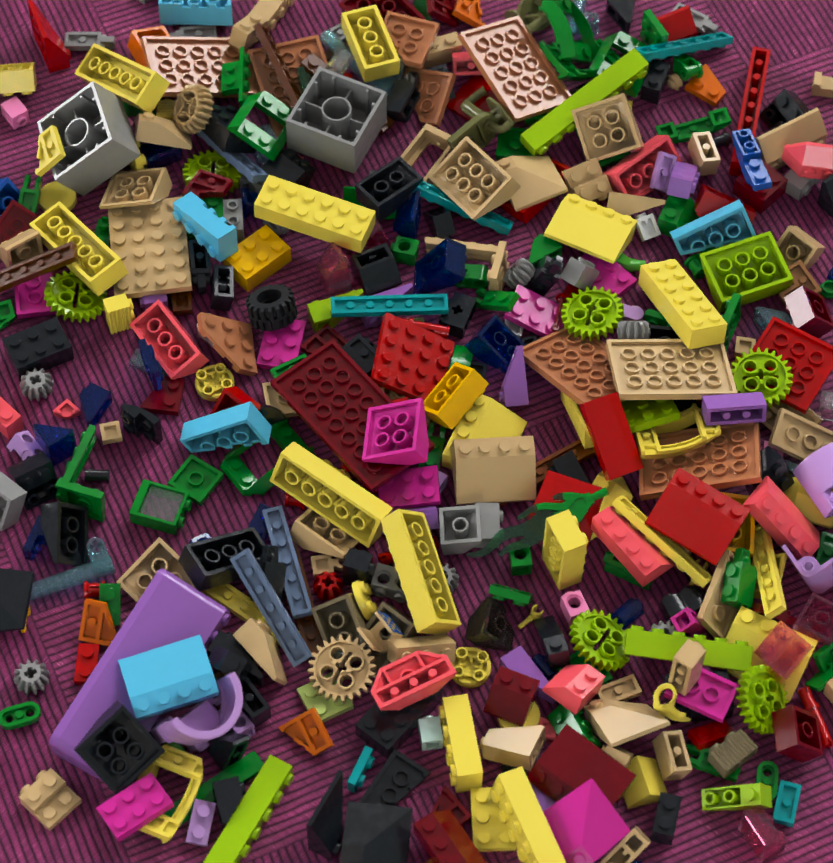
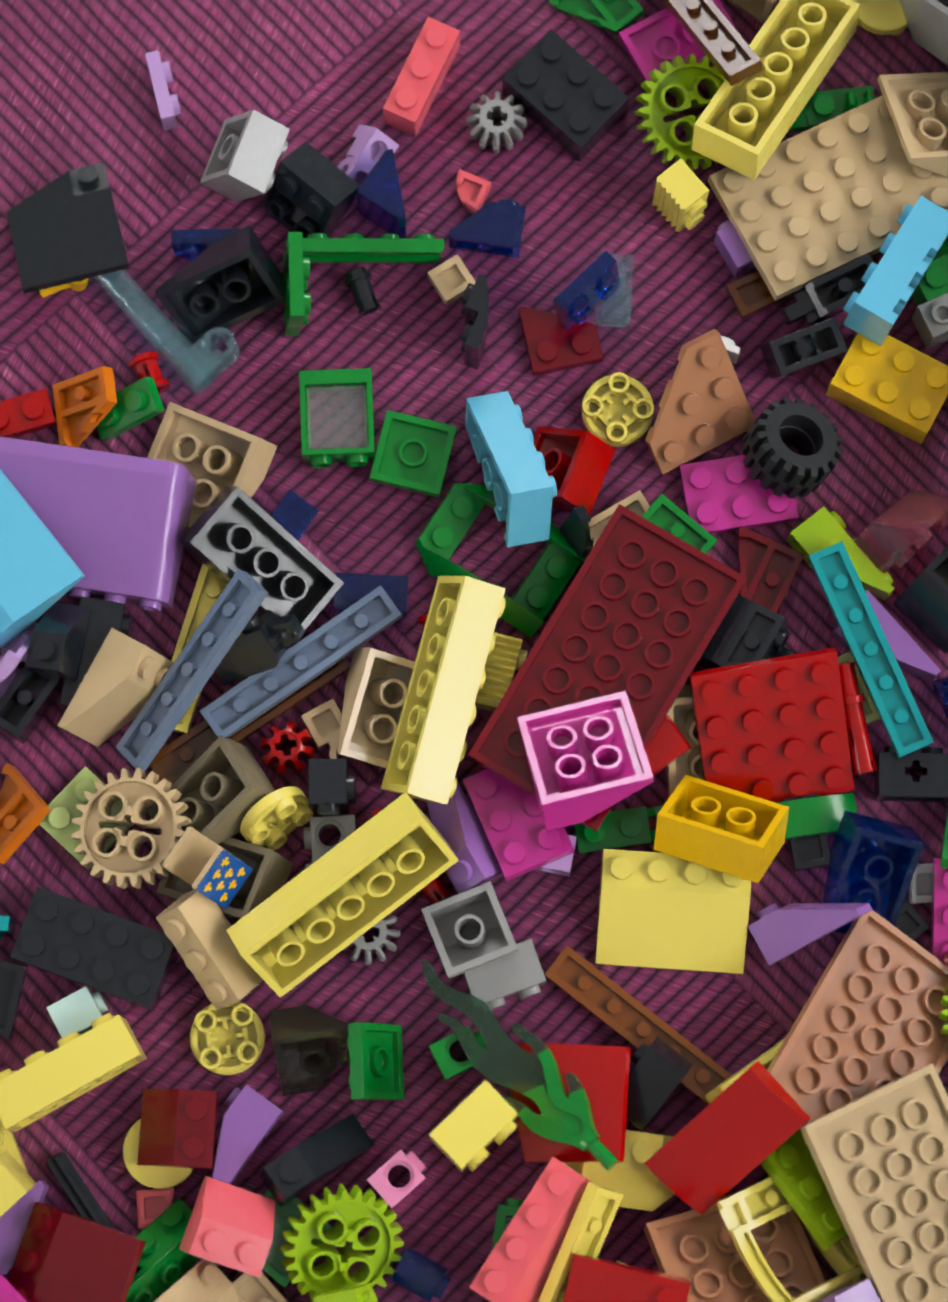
camera: 70 degrees right, 20 degrees up
(170, 341) = (661, 303): coral slope -> none
(411, 679) = (126, 947): coral wedge -> none
(494, 469) = (600, 951): tan slope -> none
(513, 745) = (95, 1162): tan slope -> none
(533, 616) = (354, 1107): light yellow hand -> none
(543, 666) = (271, 1150): clear blue pin -> none

